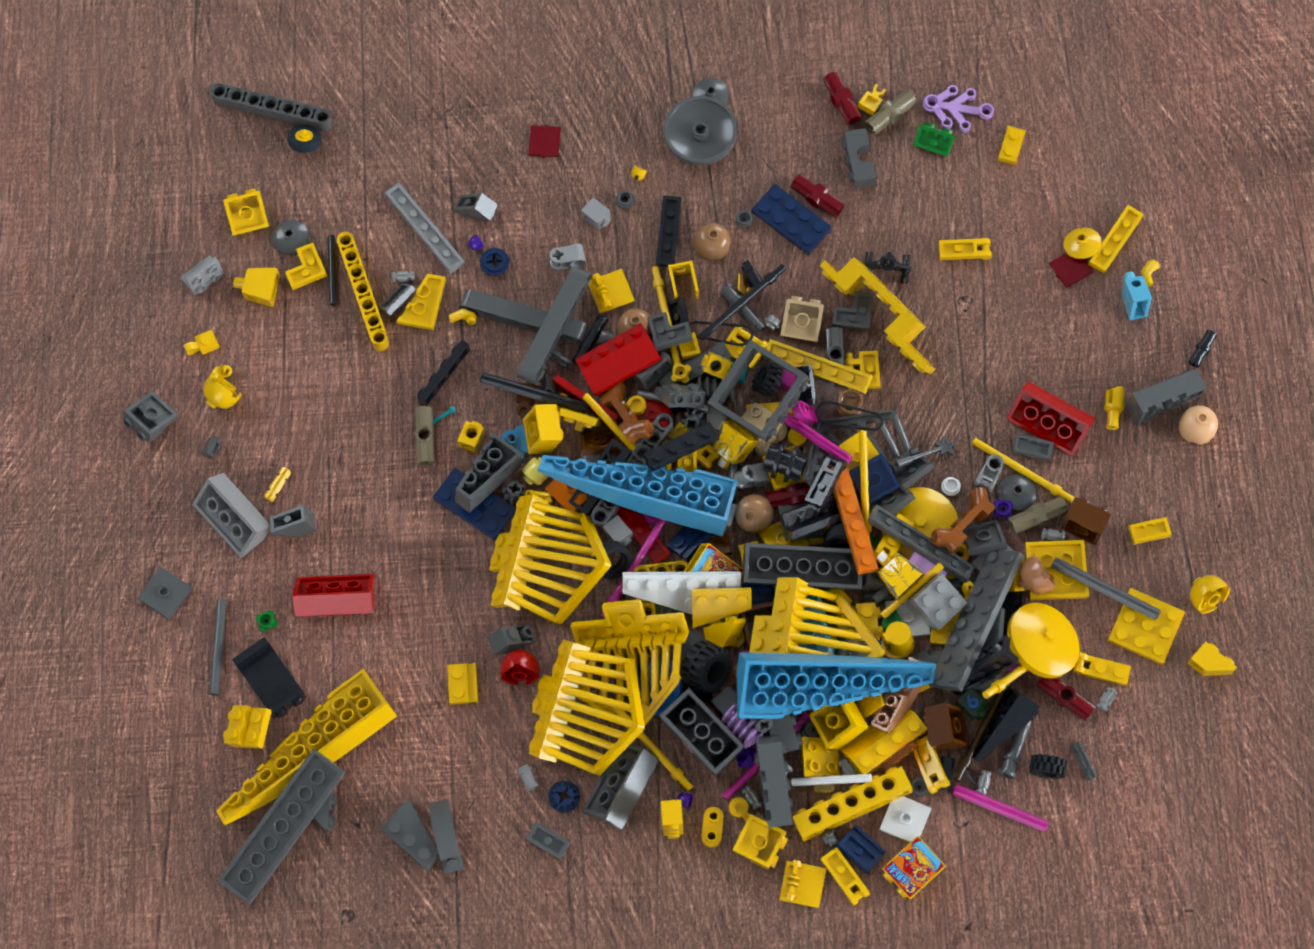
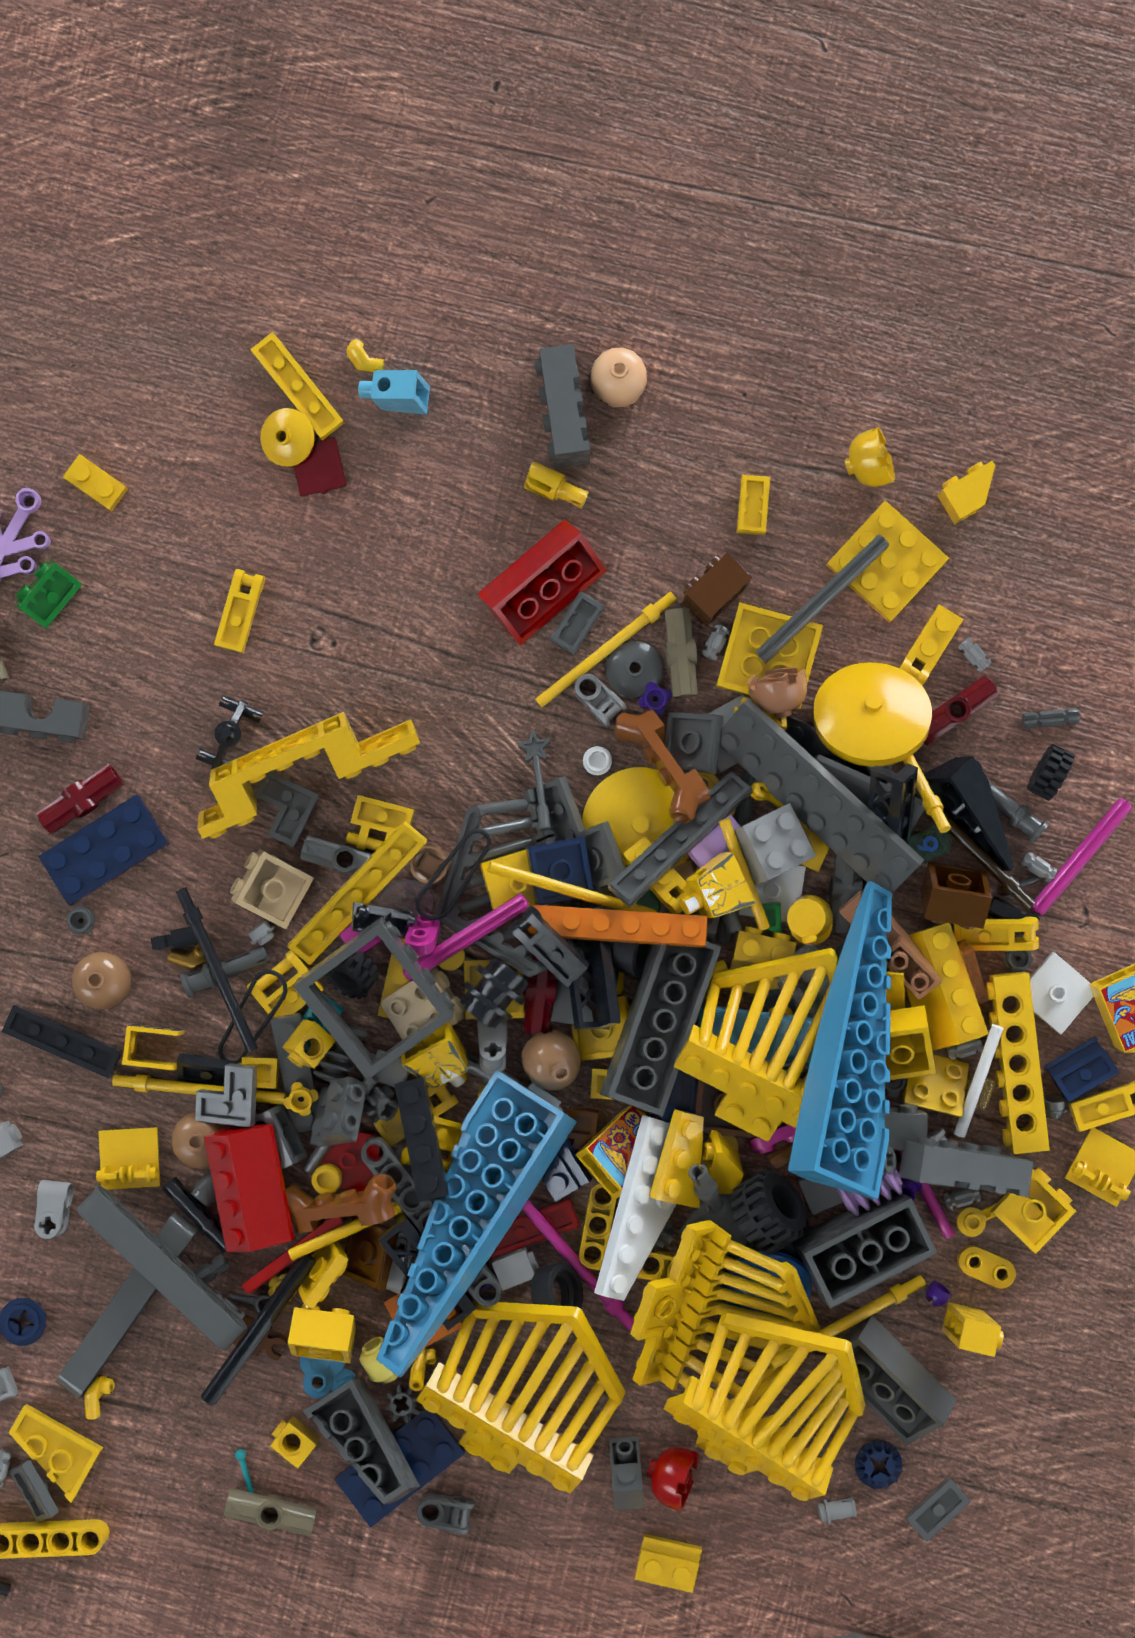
camera: 75 degrees left, 15 degrees up
(446, 369) = (186, 1463): black plate -> none
(455, 541) = (448, 1512): none -> dark grey piece
(707, 624) = (706, 1188): none -> dark grey pin
(1202, 348) = (506, 327): black pin -> none

